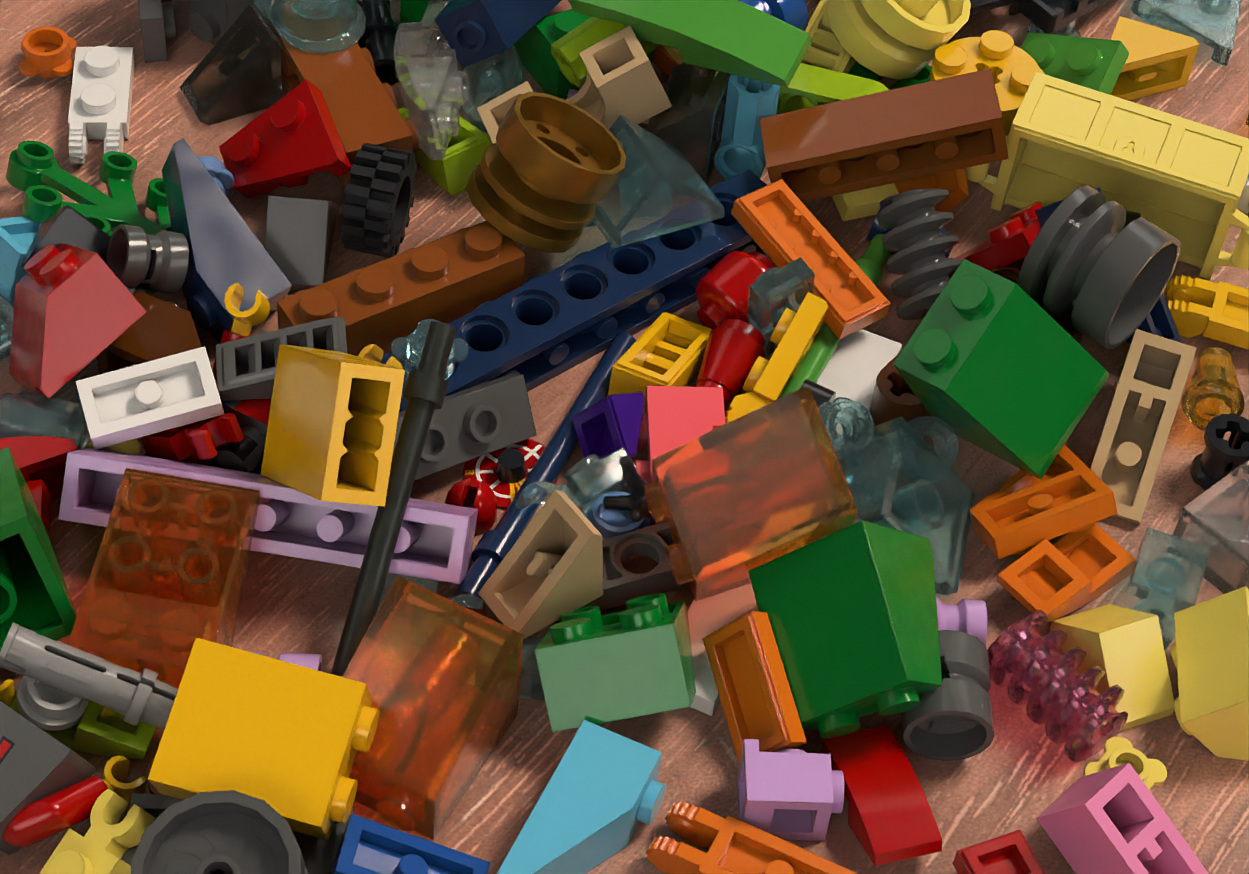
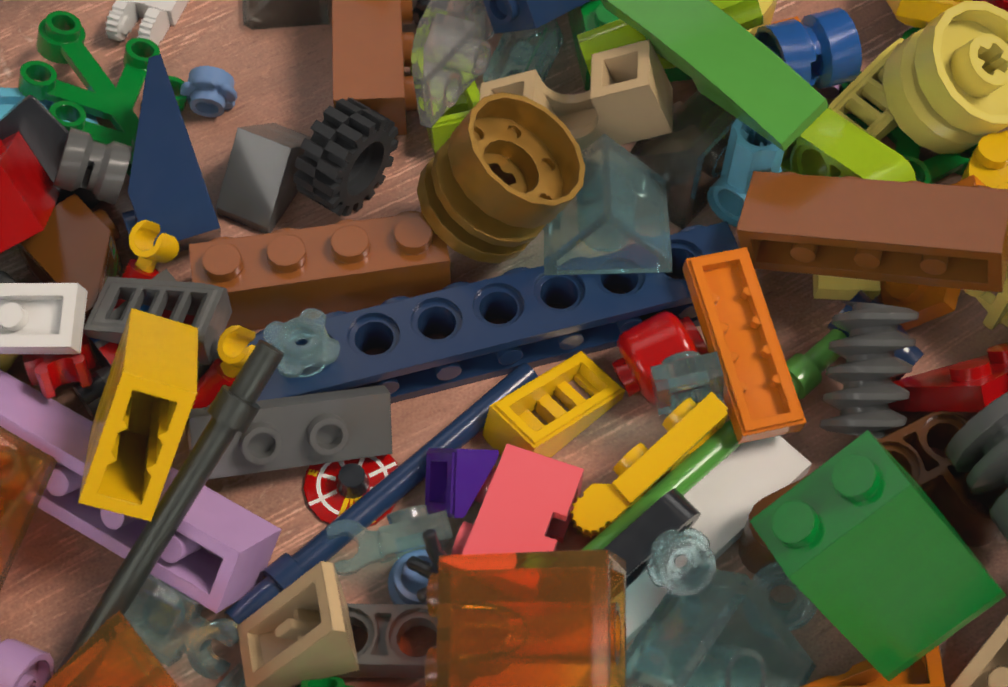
camera: 25 degrees right, 10 degrees up
(286, 144) = (291, 72): red wing -> none
(484, 501) = (300, 520): red hinge -> none
(730, 357) = (613, 431): red cone -> none

